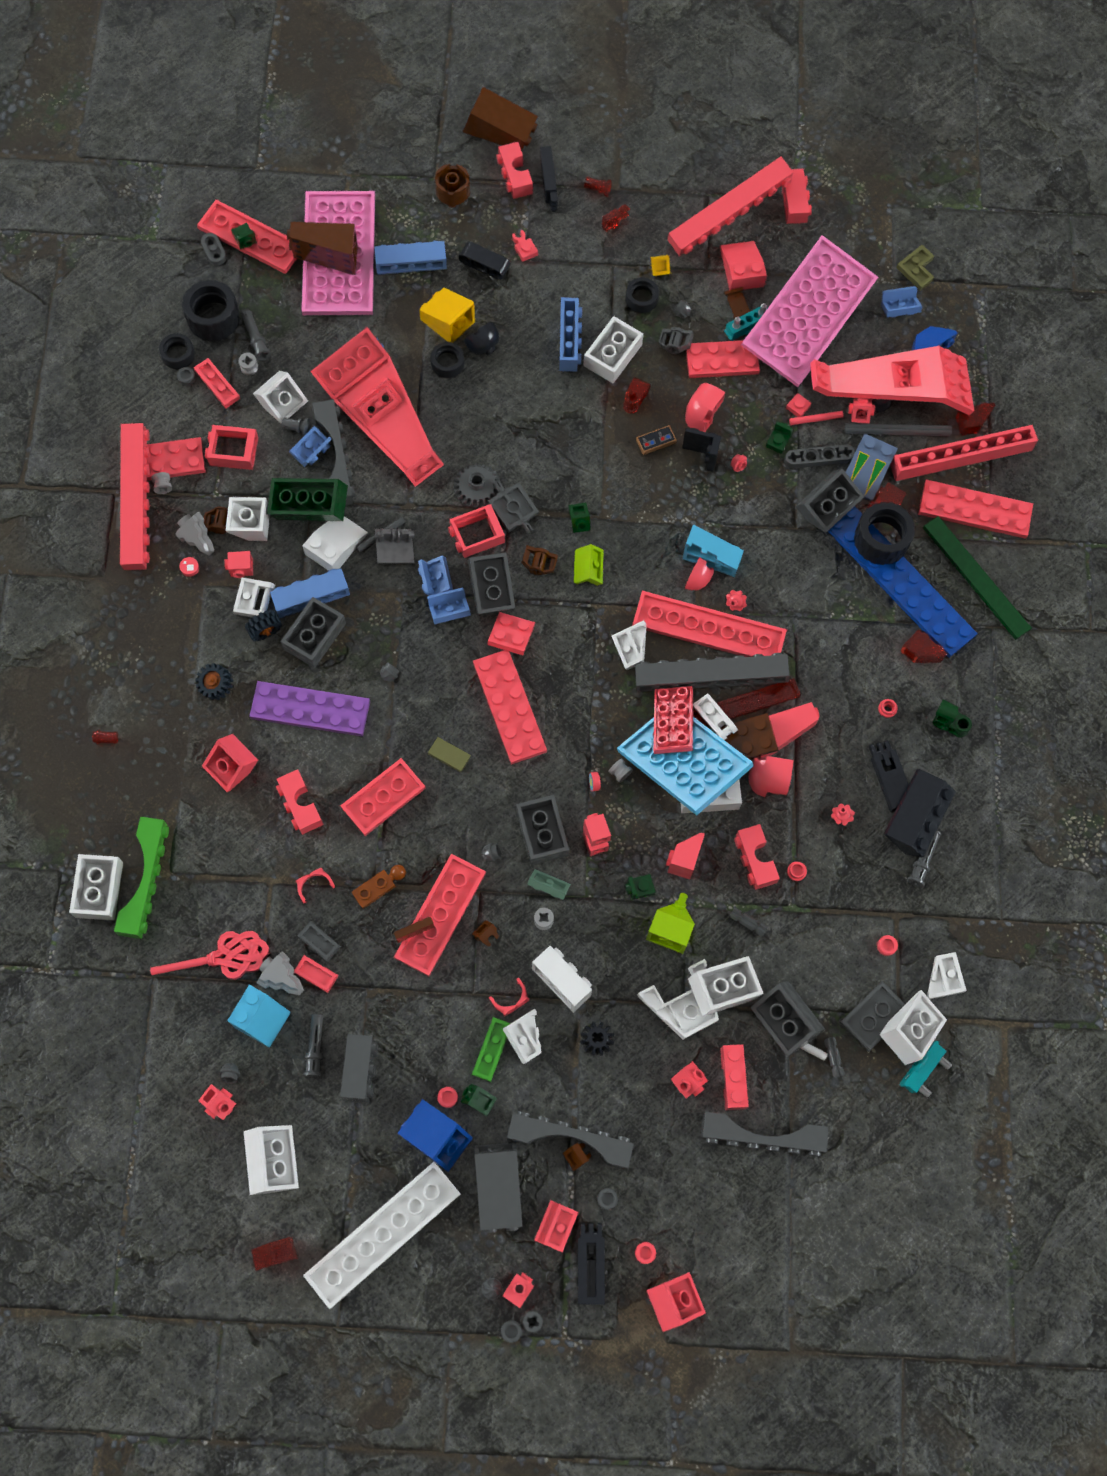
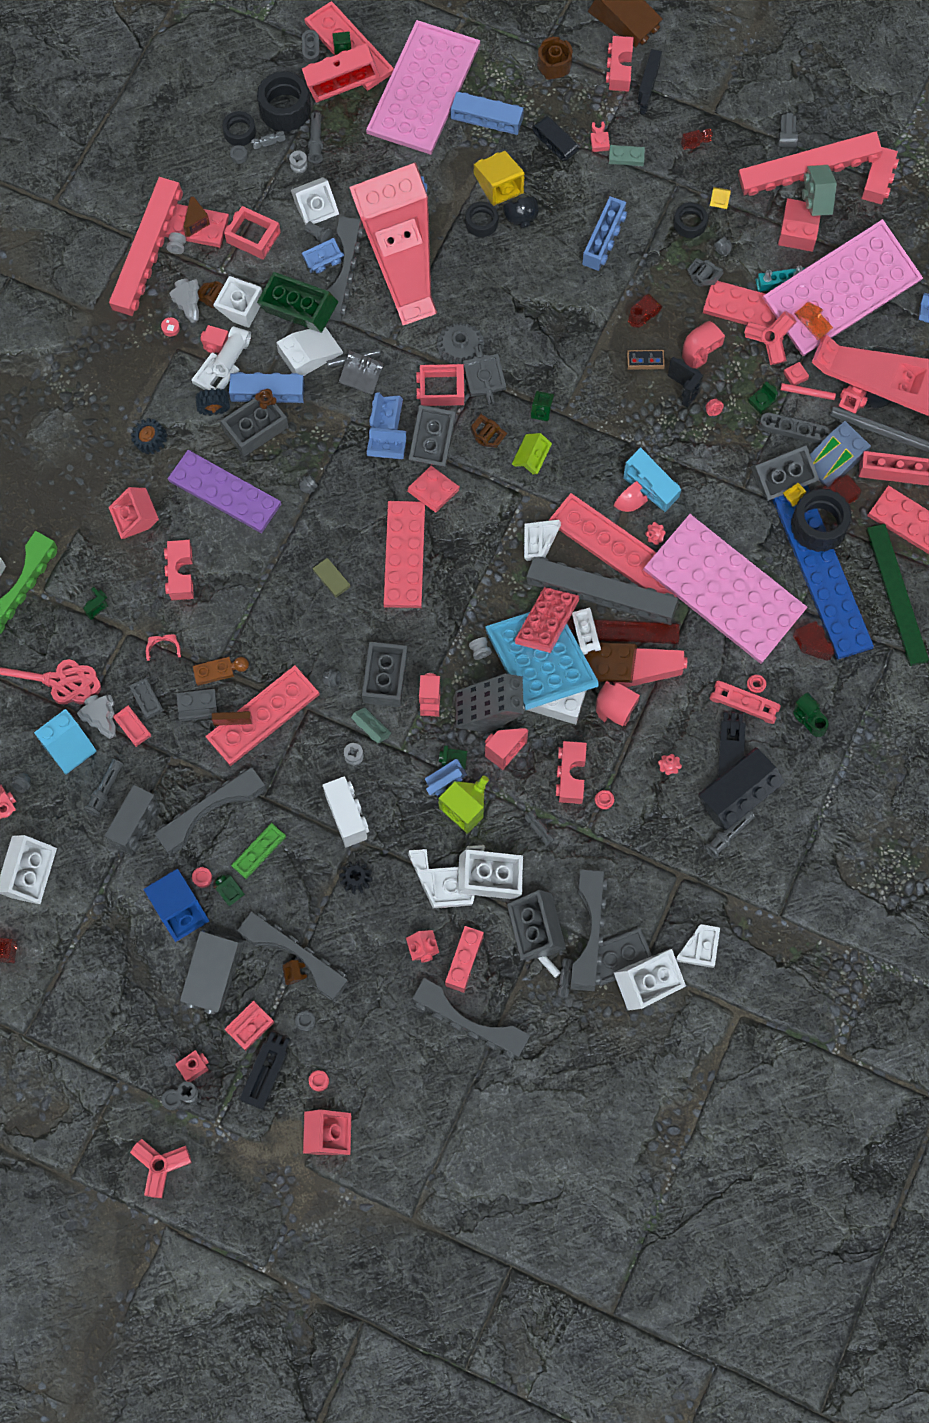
camera: 25 degrees right, 0 degrees up
(104, 737) = (35, 451): clear red pin -> none
(172, 451) = (195, 218): none -> reddish brown slope
(210, 352) = (268, 139): none -> dark grey axle
(216, 383) = (263, 169): coral plate -> none
(229, 869) = (97, 605): none -> dark green bracket
(256, 264) = (341, 72): none -> coral brick
(261, 565) = (237, 341): none -> white piece
(316, 598) = (266, 393): none -> reddish brown plate
(325, 244) = (411, 75): reddish brown slope -> none
(371, 928) = (196, 705): none -> dark grey plate
(381, 1235) = (94, 972): white plate -> none
(383, 797) = (256, 593): coral plate -> none
(453, 993) = (243, 788): none -> dark grey arch
(484, 931) = (295, 745): reddish brown tile -> none
(509, 1009) = (286, 822): coral cap -> none
(524, 1036) = (291, 850): white wing -> none
(530, 1418) = (149, 1156): none -> coral piece
(556, 254) = (626, 155): none -> sand green plate
(594, 781) = (452, 649): coral tile -> none
(599, 185) = (697, 105): clear red pin -> none
(613, 349) = (639, 261): white brick -> none
(641, 907) = (445, 777): none -> medium blue bracket
(657, 821) = (489, 703): none -> dark grey slope
(696, 187) = (788, 135): none -> dark grey piece
(737, 302) = (780, 256): reddish brown piece -> none
(750, 227) = (819, 190): none -> sand green brick
(769, 367) = (779, 328): none -> coral piece
(797, 350) = (813, 320): none -> clear orange slope
(822, 629) = (725, 588): none -> bright pink plate
(823, 963) = (585, 967): none -> dark grey arch
(850, 517) = (794, 494): none -> yellow plate
(885, 729) = (745, 701): none -> coral plate
(887, 945) = (659, 898): coral tile -> none
(922, 1069) = (643, 1019): teal piece -> none

